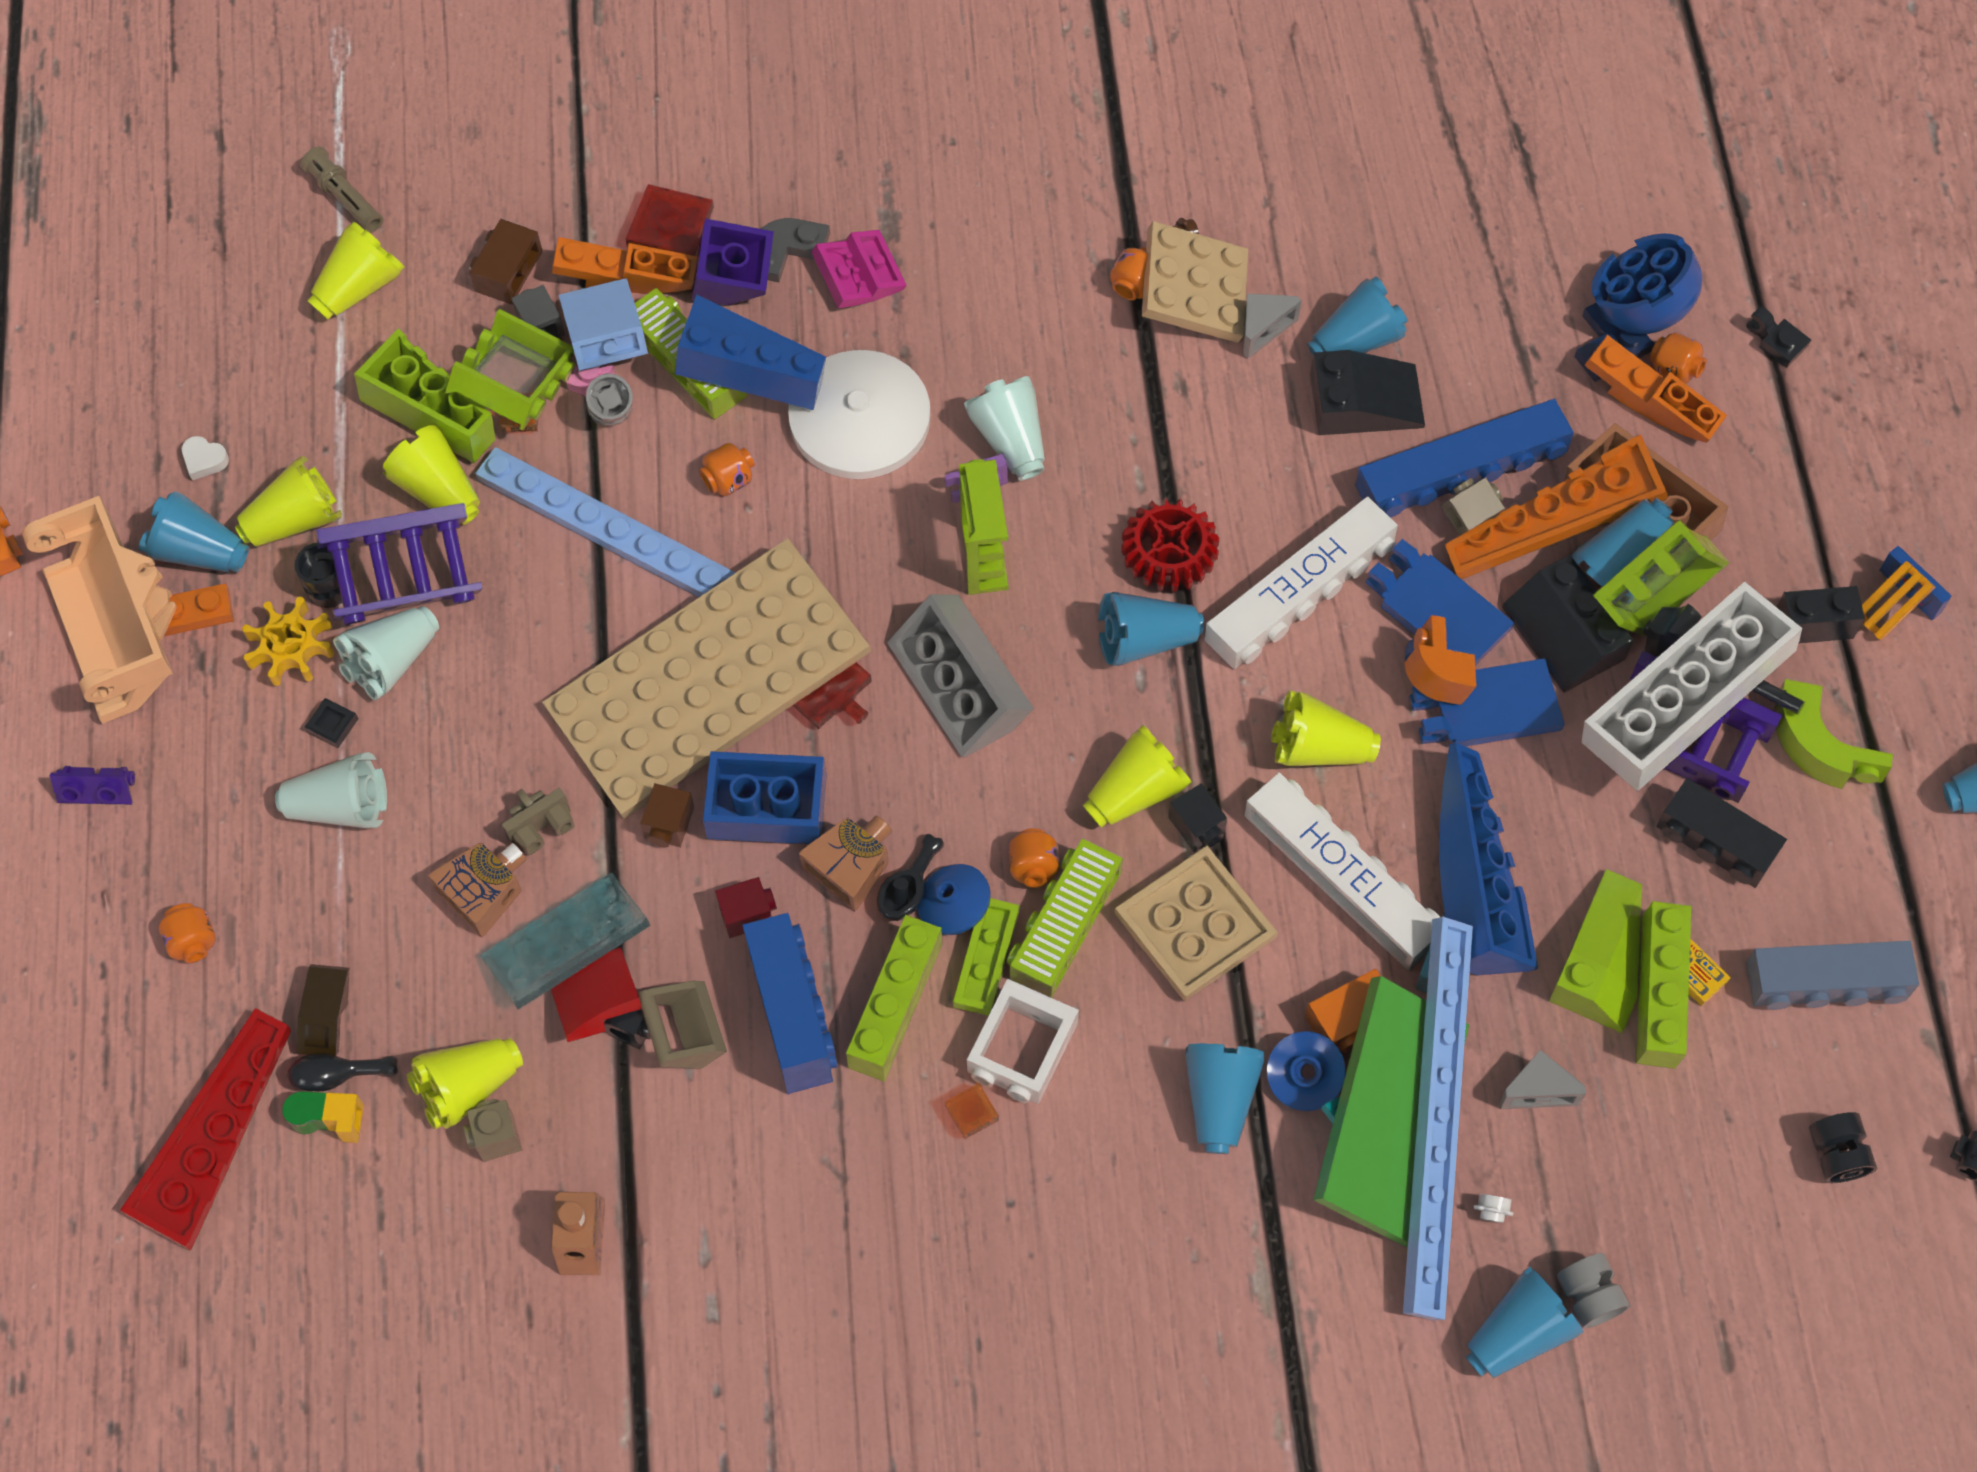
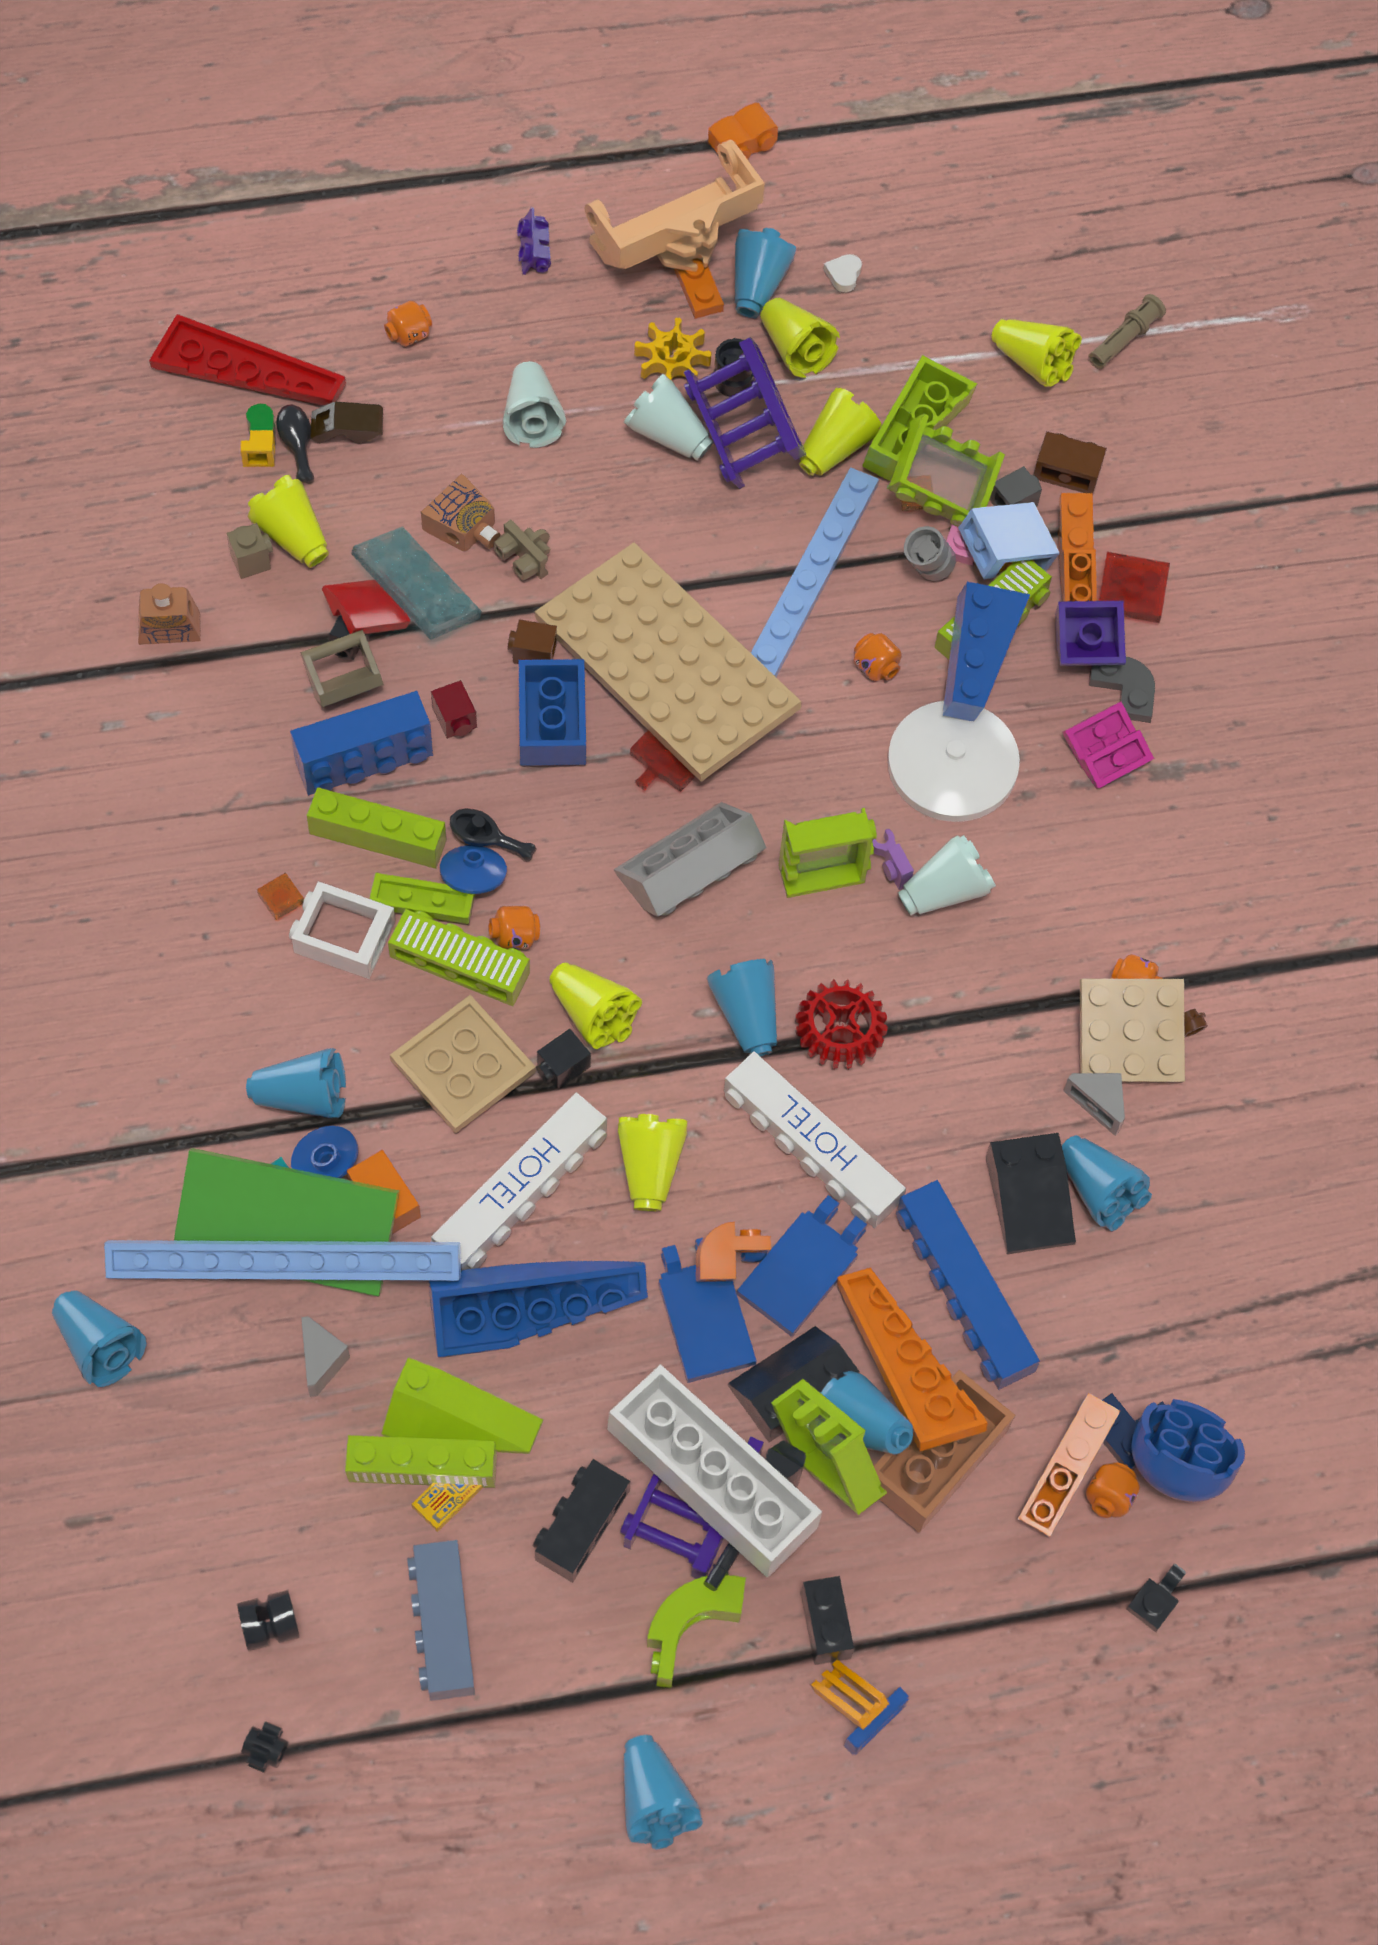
camera: 80 degrees right, 0 degrees up
(331, 723) = (604, 397): black tile -> none
(848, 859) = (503, 784): nougat torso -> none
(1472, 504) = (912, 1288): brick -> none
(1493, 1208) = (207, 1317): white plate -> none
(1593, 1290) = (116, 1401): light grey wheel -> none

